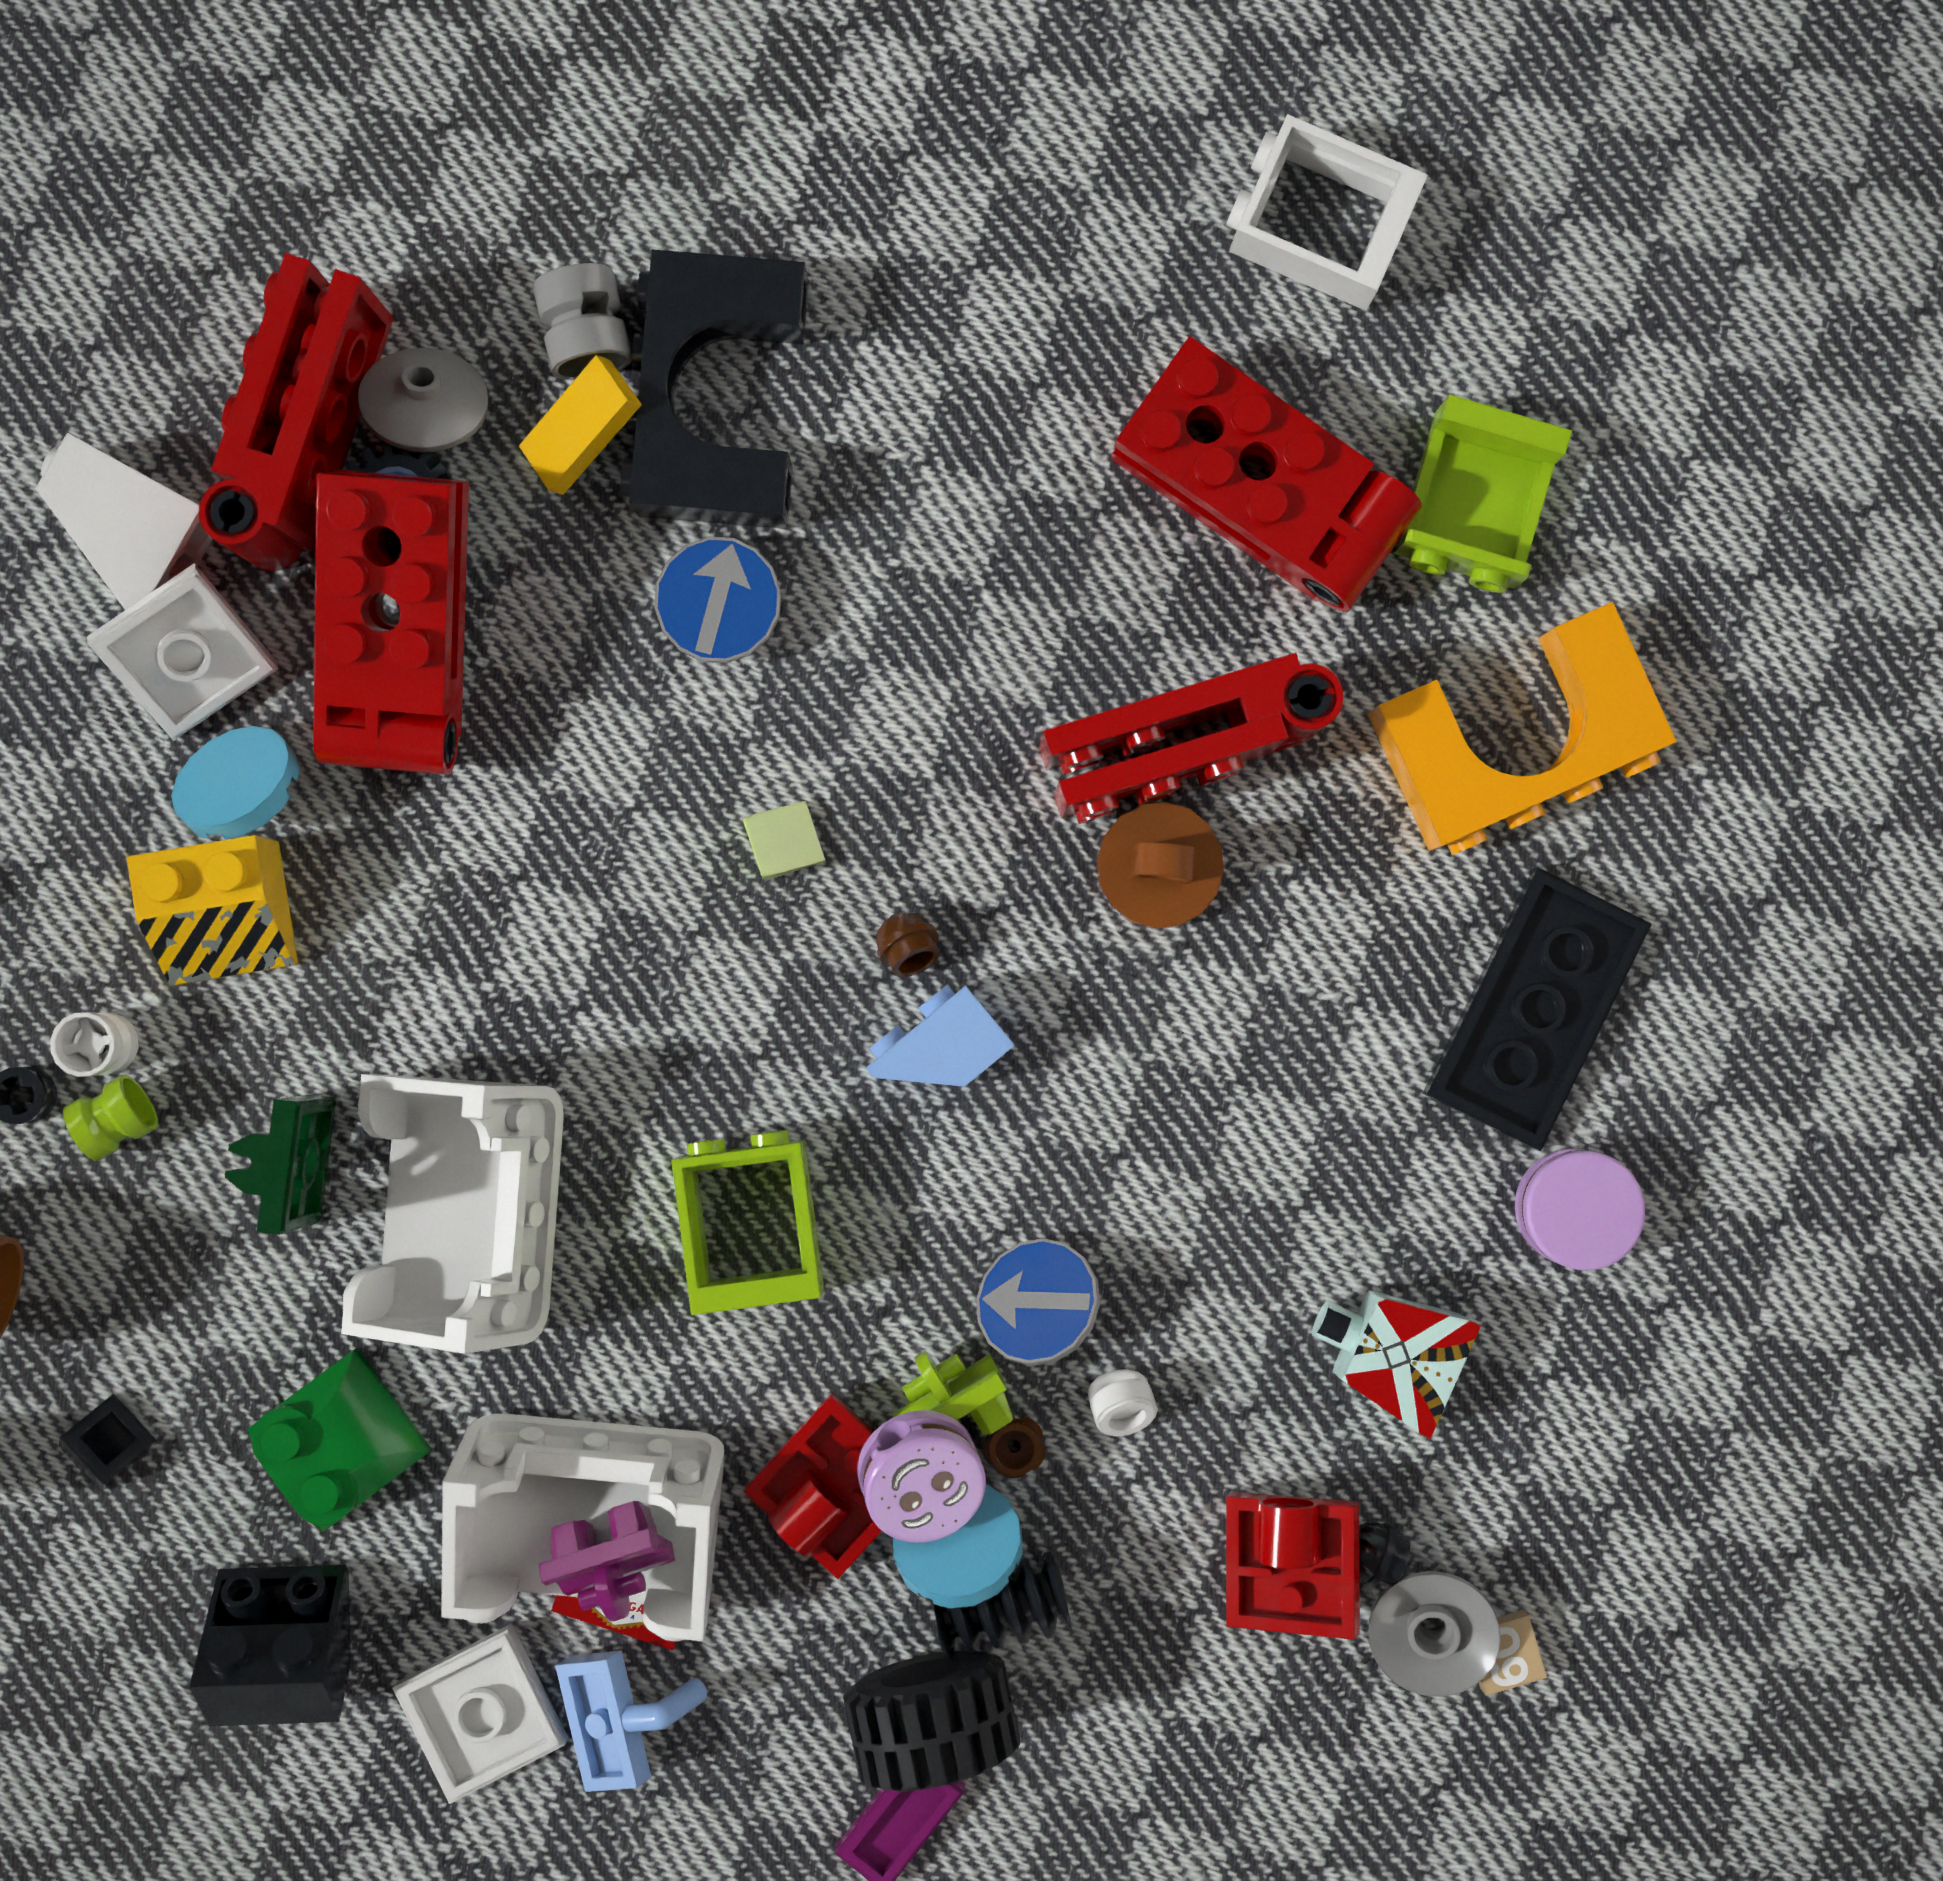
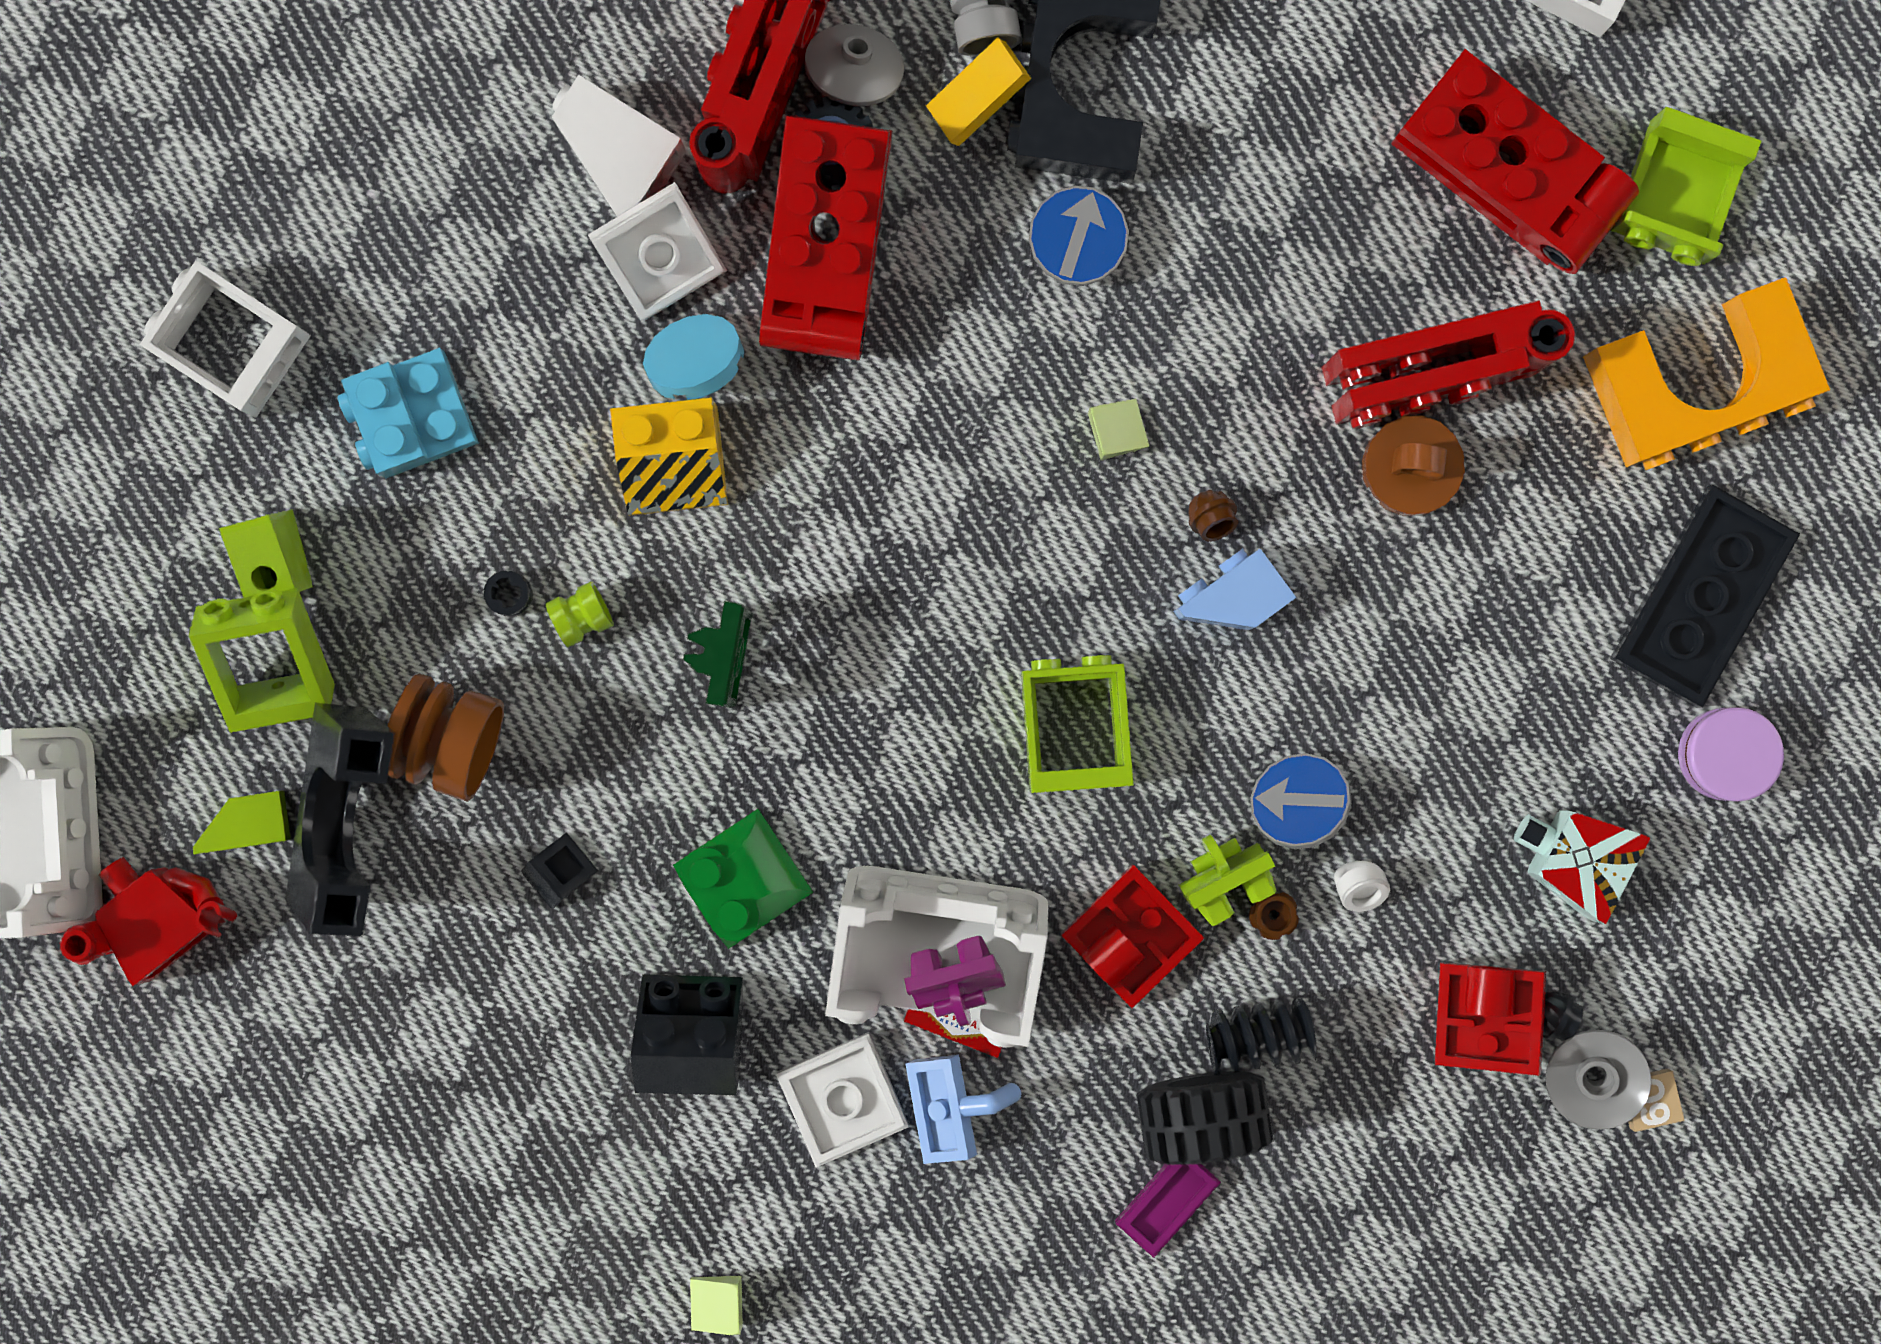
camera: 10 degrees right, 0 degrees up
(79, 1045) = (561, 555): white wheel -> none
(463, 1213) = (850, 701): white windscreen -> none
(921, 1476) = (1206, 928): lavender head -> none
(968, 1563) = (1229, 984): medium azure tile -> none

